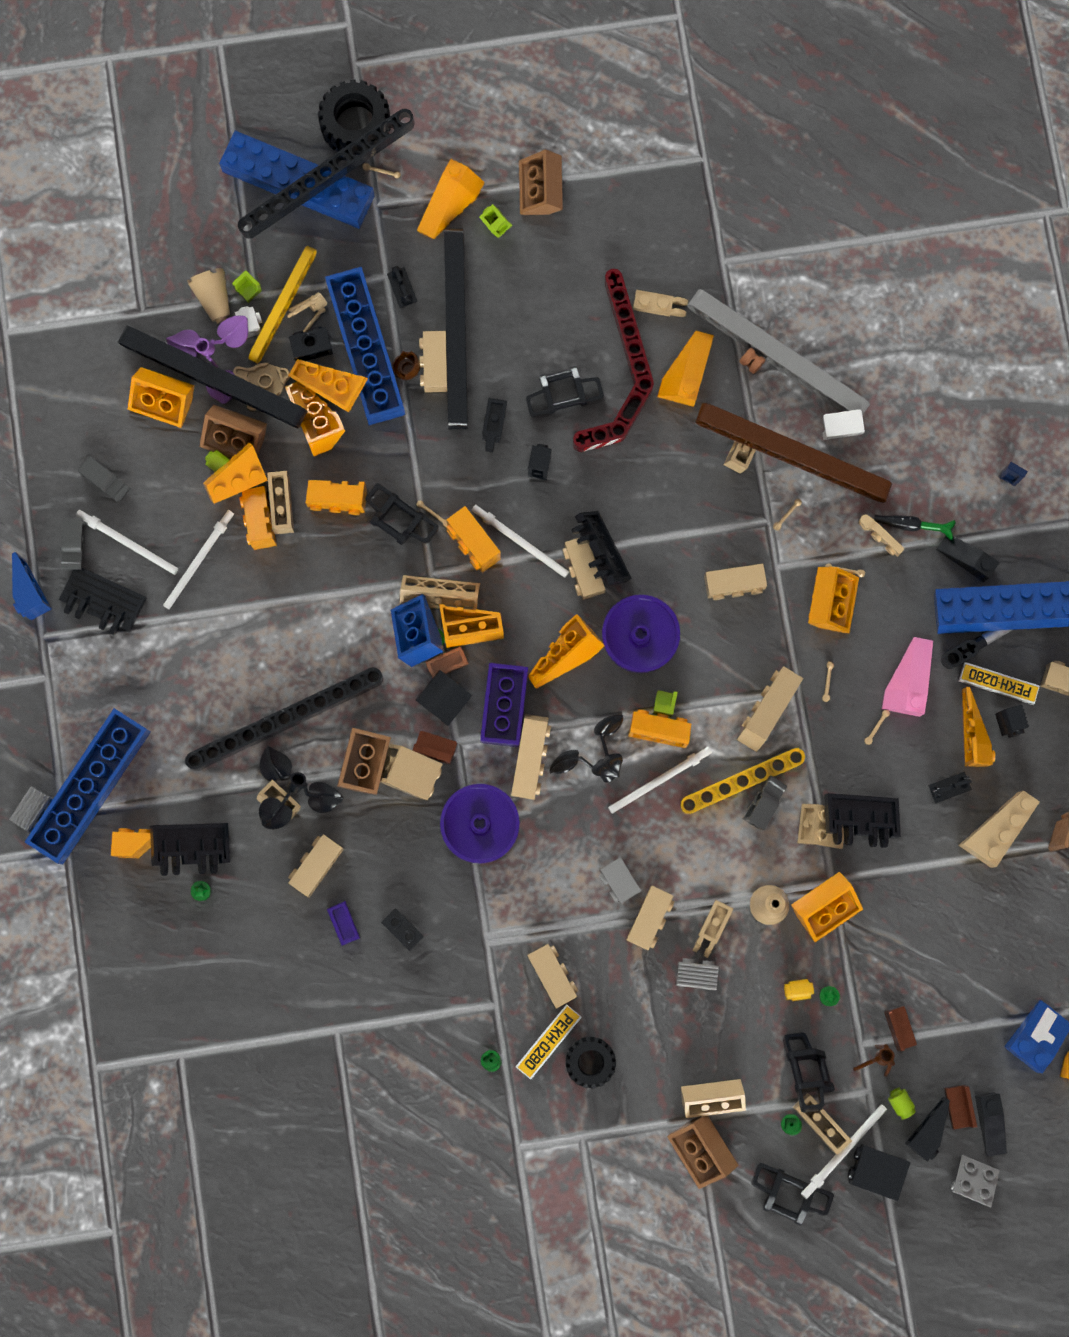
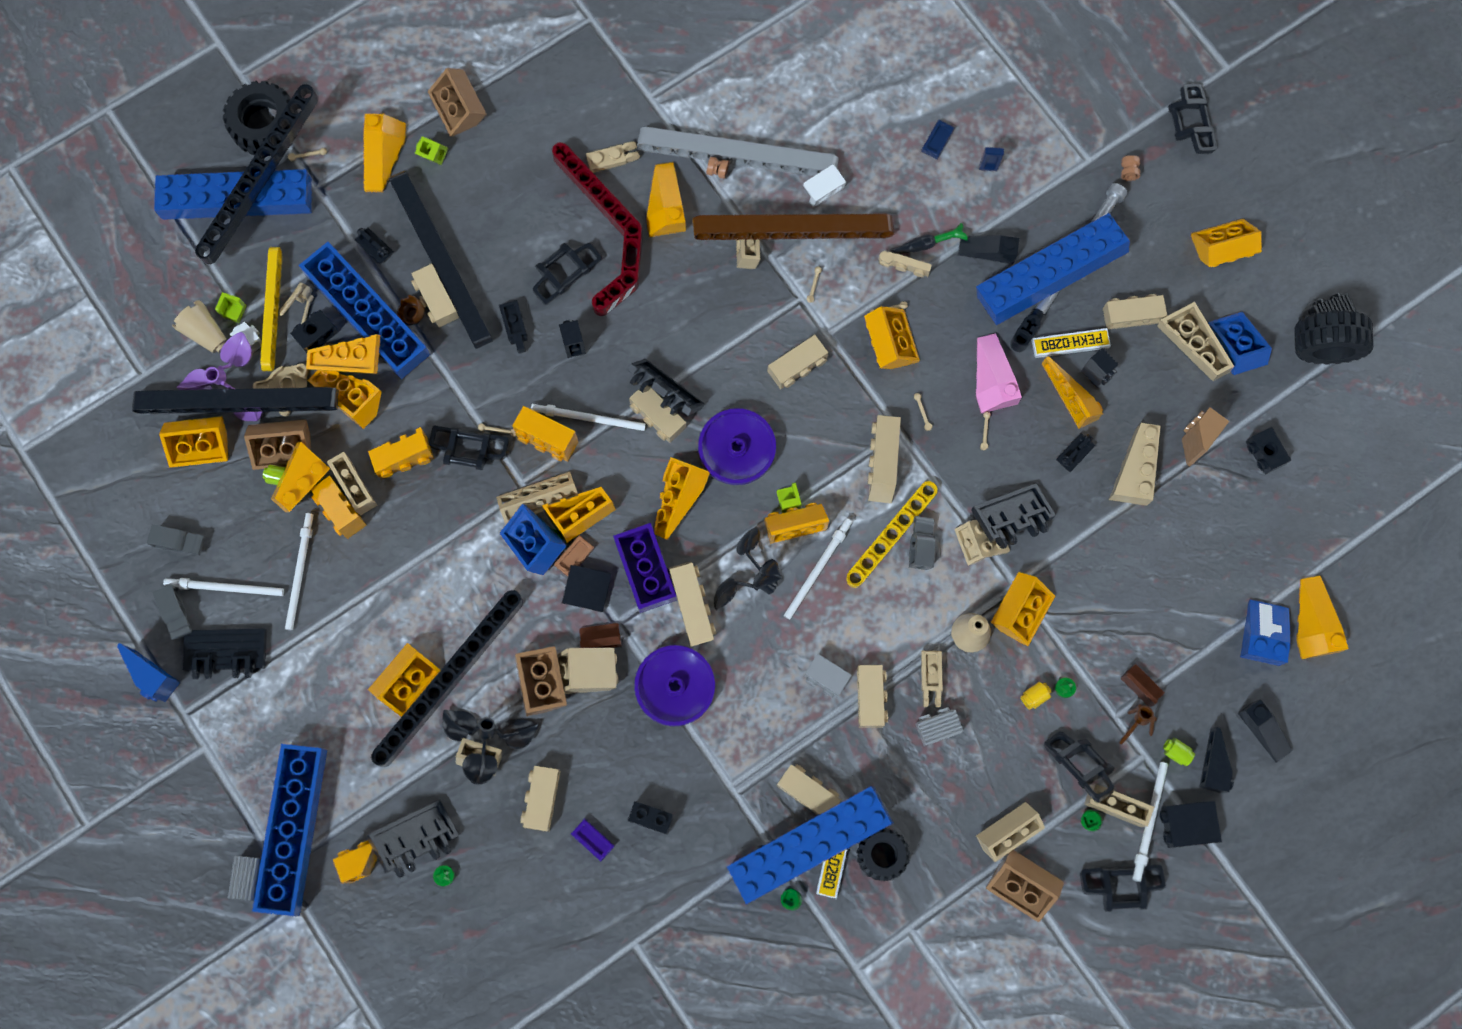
camera: 25 degrees left, 5 degrees down
(245, 702) = (404, 680): none -> light orange slope
(530, 1022) = (810, 844): none -> blue brick
(960, 1107) = (1233, 729): copper panel -> none
(973, 429) = (937, 139): none -> dark blue tile
(976, 1181) = (1279, 789): light grey hinge -> none

